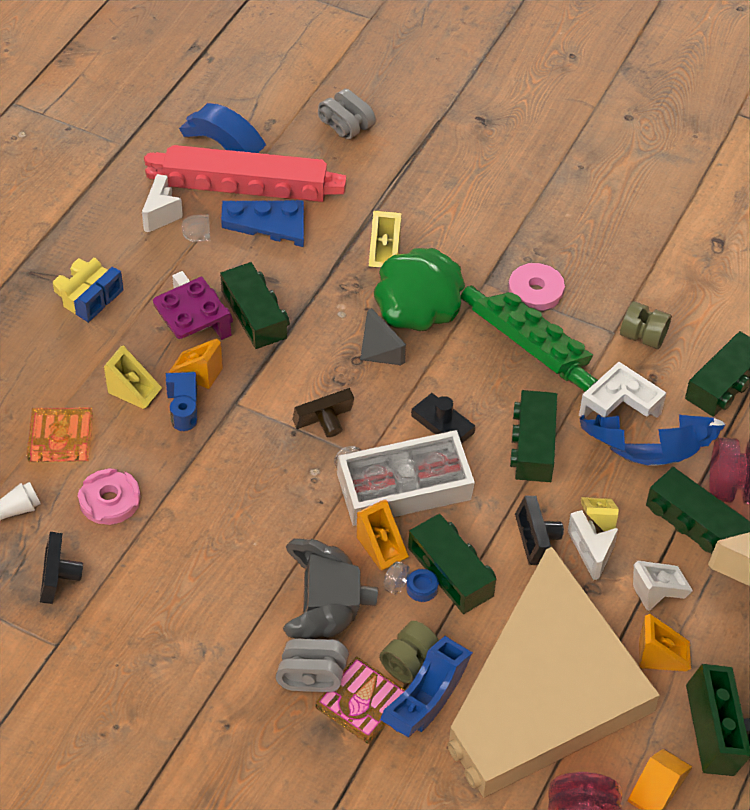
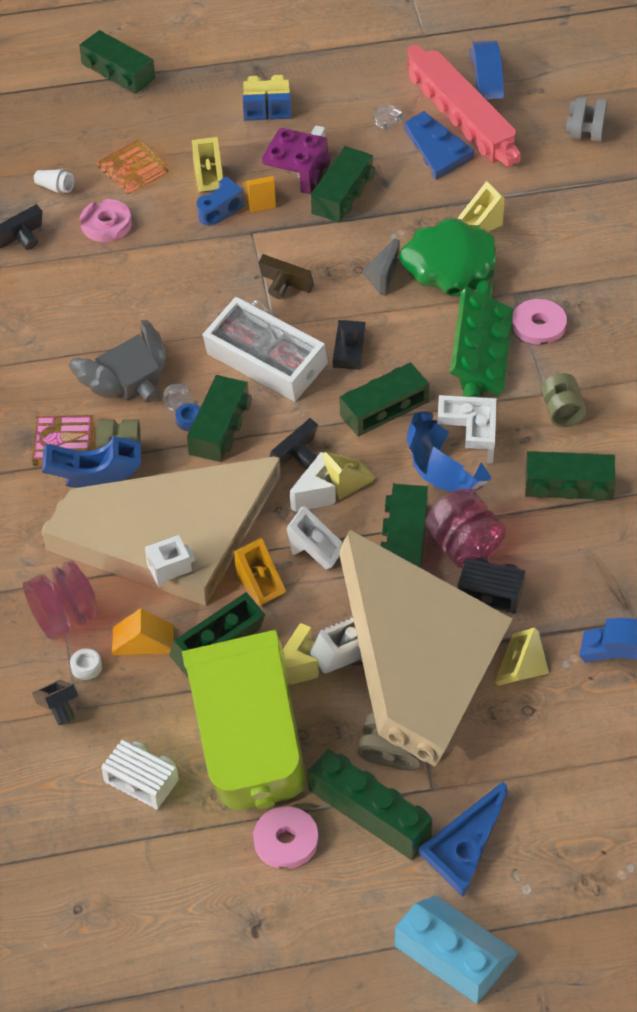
camera: 55 degrees right, 0 degrees up
(160, 205) = (379, 83): white slope -> none
(312, 665) = (59, 394): light grey brick -> none
(380, 535) = (204, 363): light orange slope -> none
(619, 699) = (169, 559): none -> white brick

